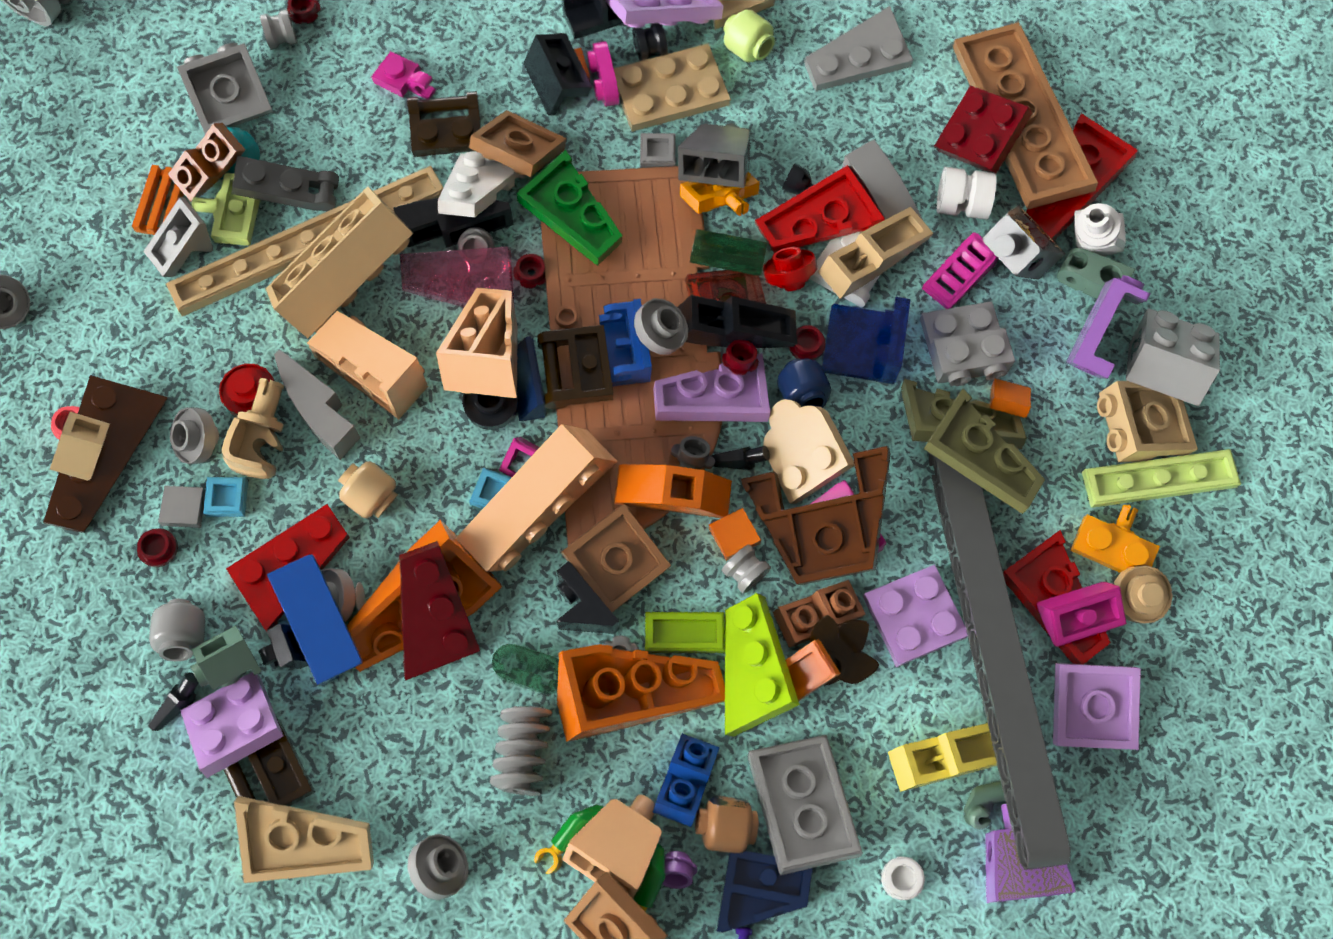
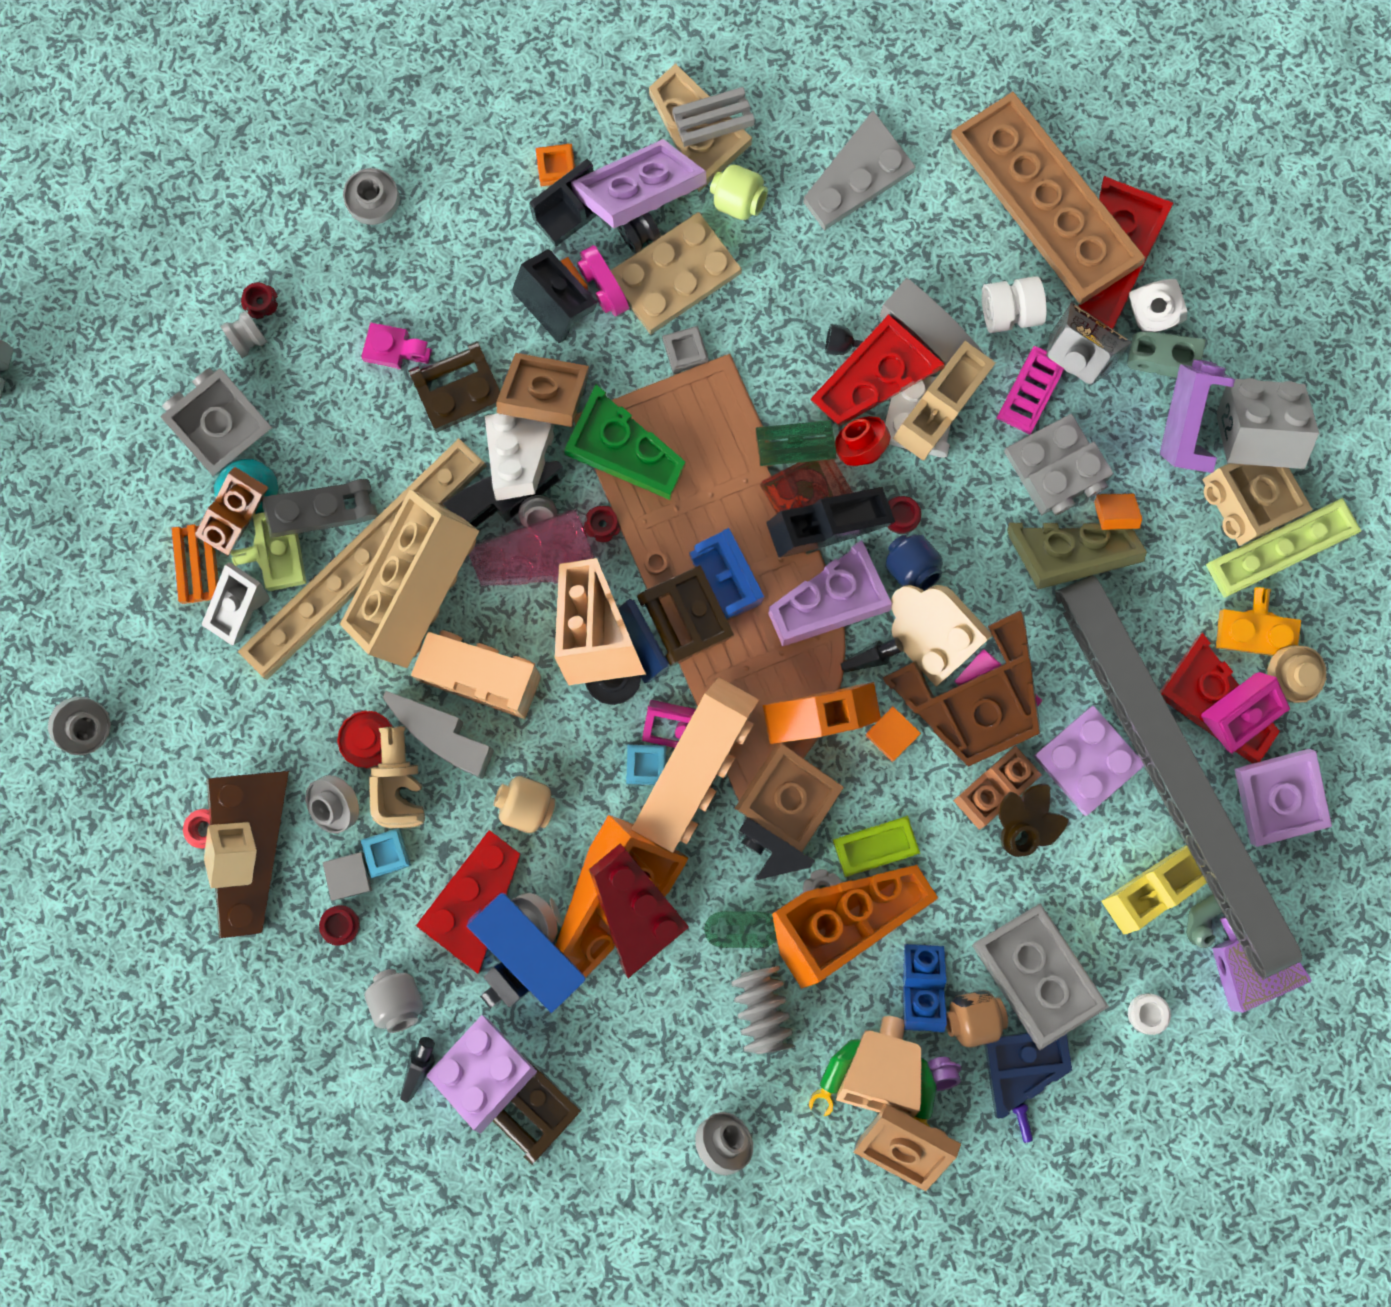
camera: 15 degrees left, 10 degrees up
(223, 659) = (451, 1016): sand green brick -> none
(298, 842) = (587, 1163): tan wing -> none
(661, 326) = (762, 554): light grey plate -> none
(693, 453) = (833, 662): dark grey plate -> none
(707, 197) = (766, 376): light orange plate -> none
(715, 155) = (751, 342): dark grey torso -> none
(738, 351) = (849, 547): dark red plate -> none
(746, 568) = (916, 767): light grey wheel -> none
(755, 668) = (955, 861): lime wing -> none
(811, 668) = (997, 860): orange tile -> none
(866, 341) = (961, 495): clear blue bracket -> none
(979, 453) = (1107, 585): olive wing -> none
(983, 129) = (1012, 229): dark red plate -> none

